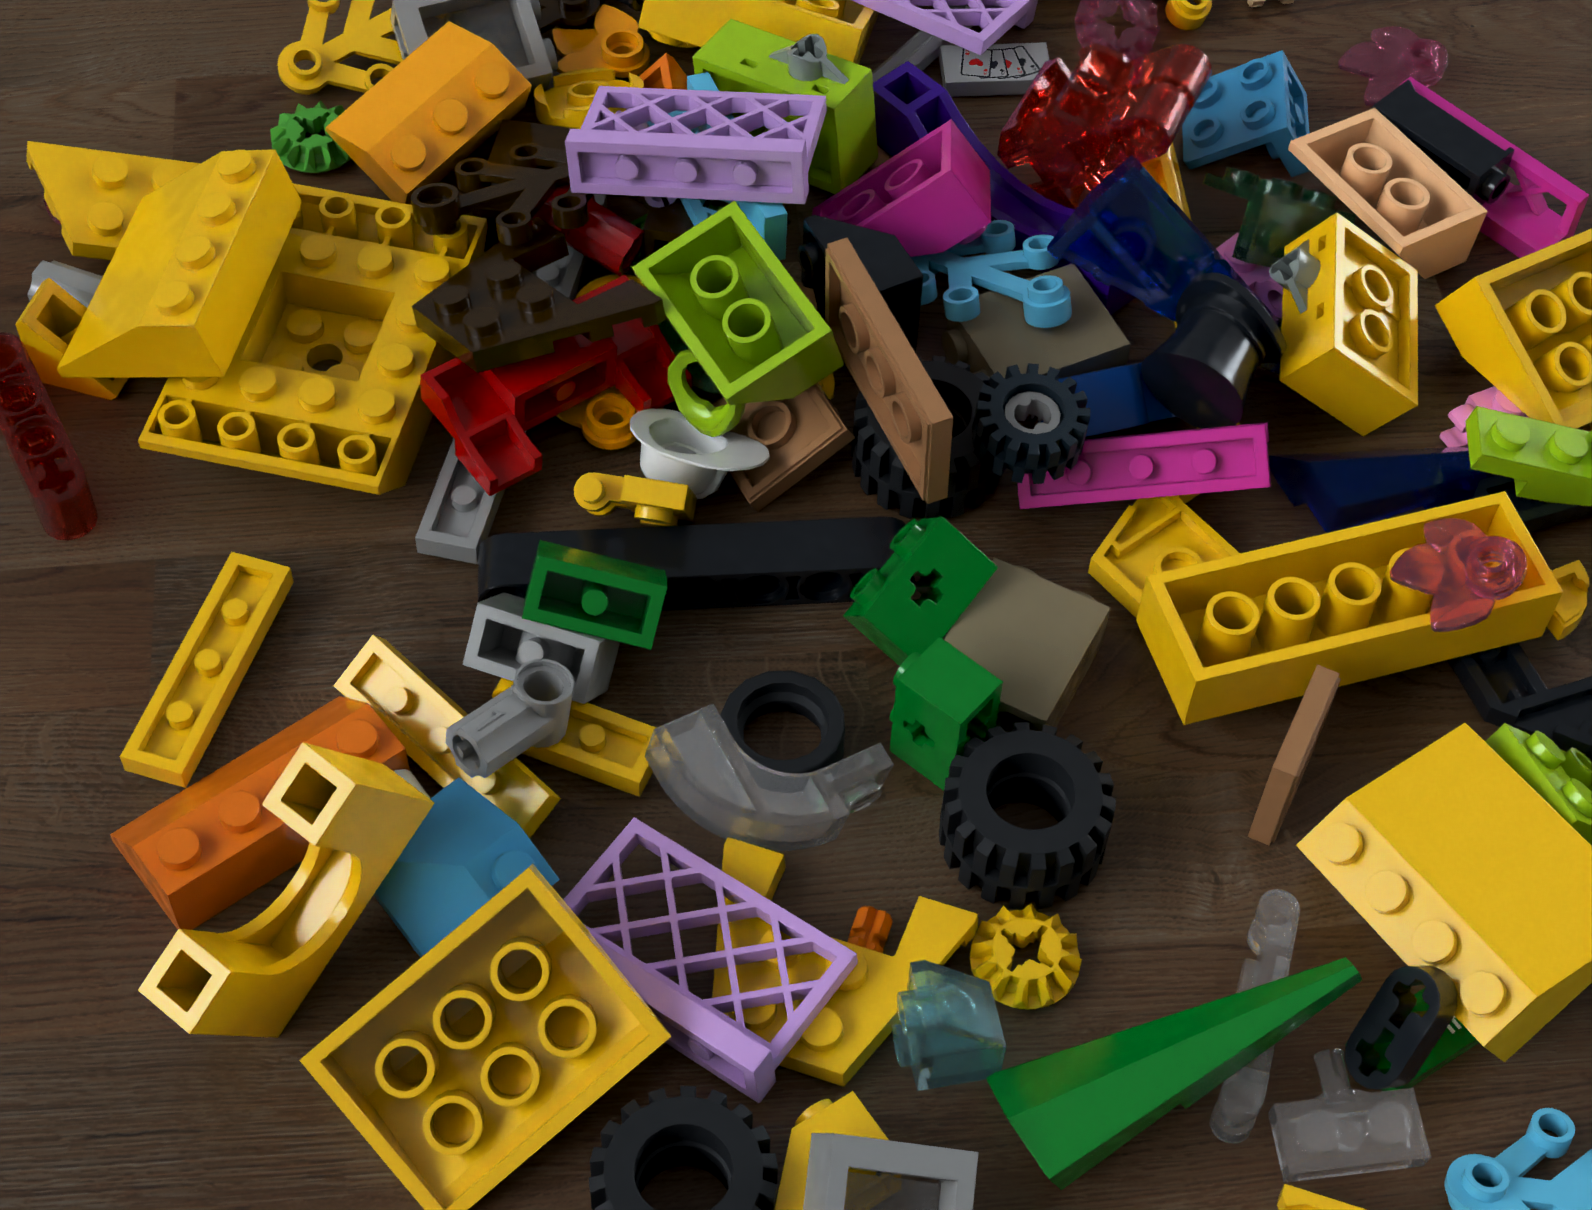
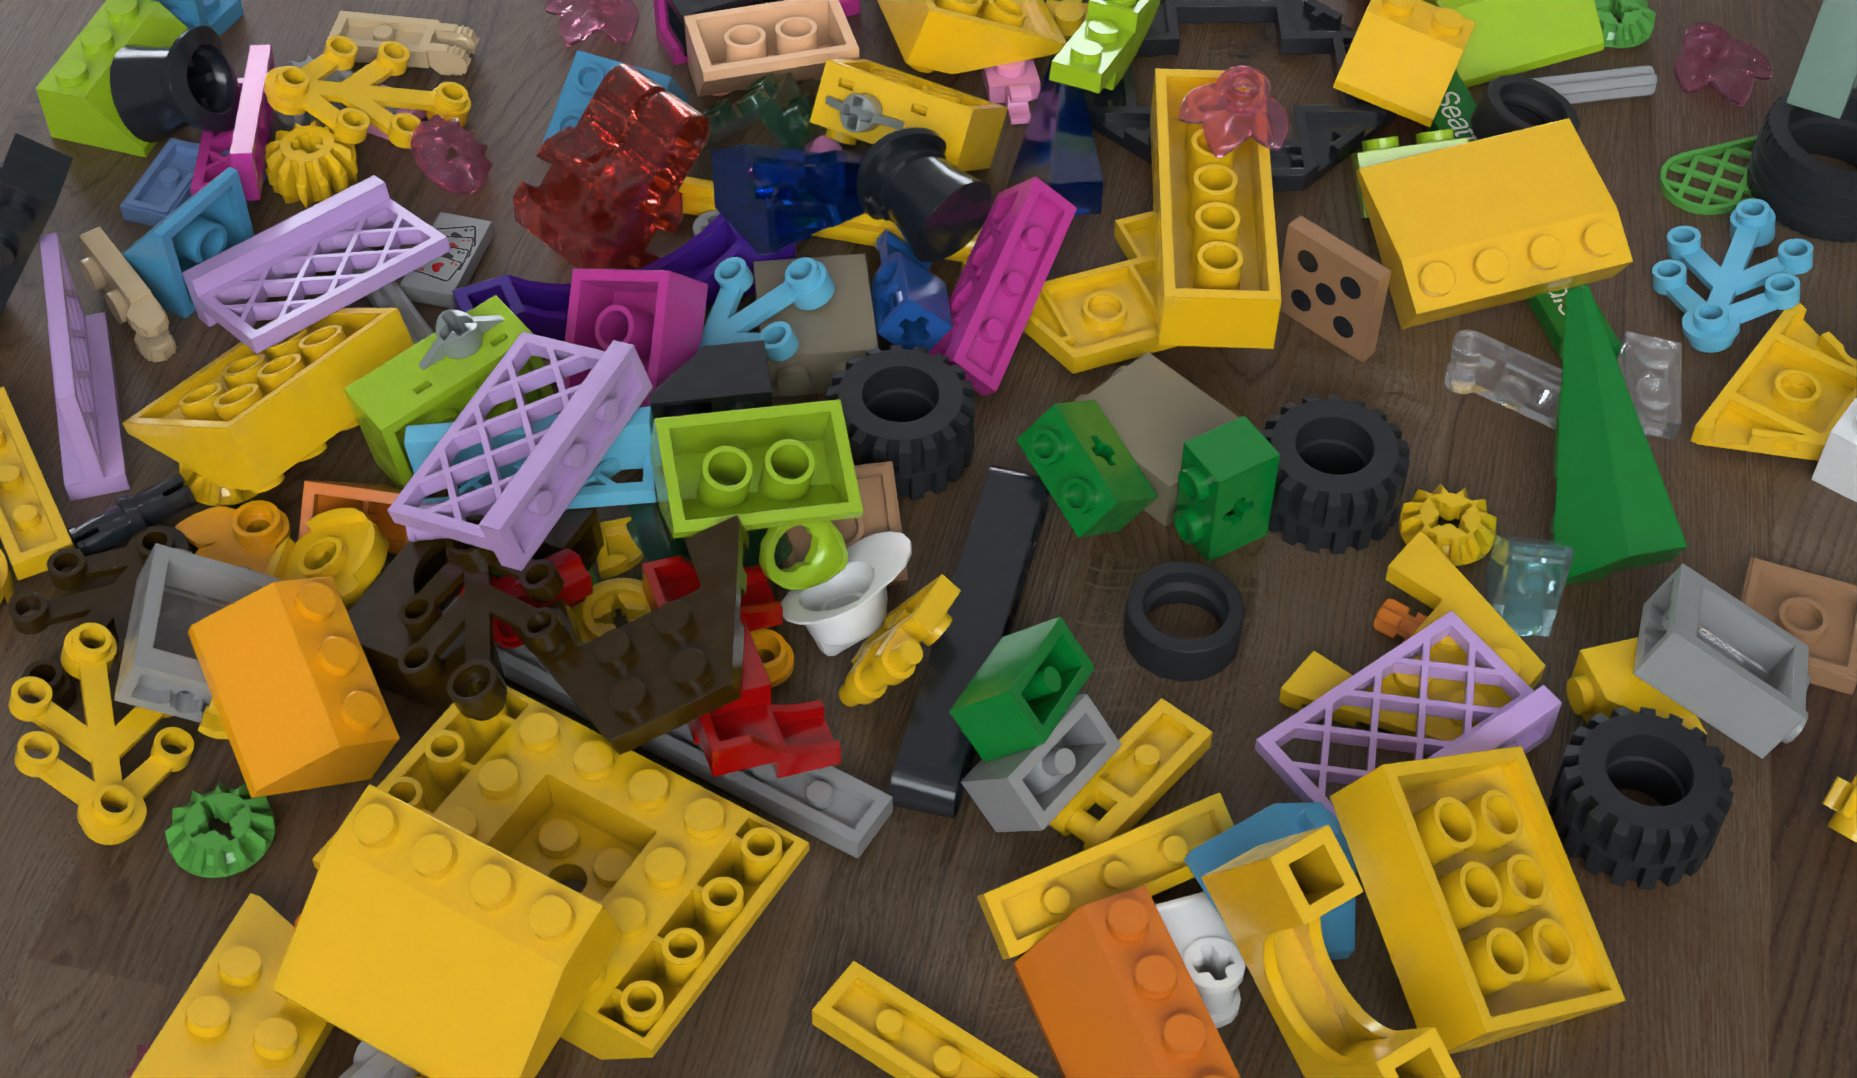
camera: 70 degrees left, 5 degrees down
(521, 717) = (1141, 786): light grey piece -> none
(752, 803) = (1246, 664): clear arch -> none
(888, 372) = (897, 379): medium nougat tile -> none
(1024, 450) = (961, 347): black bush -> none
(1391, 1021) = (1609, 295): black beam -> none

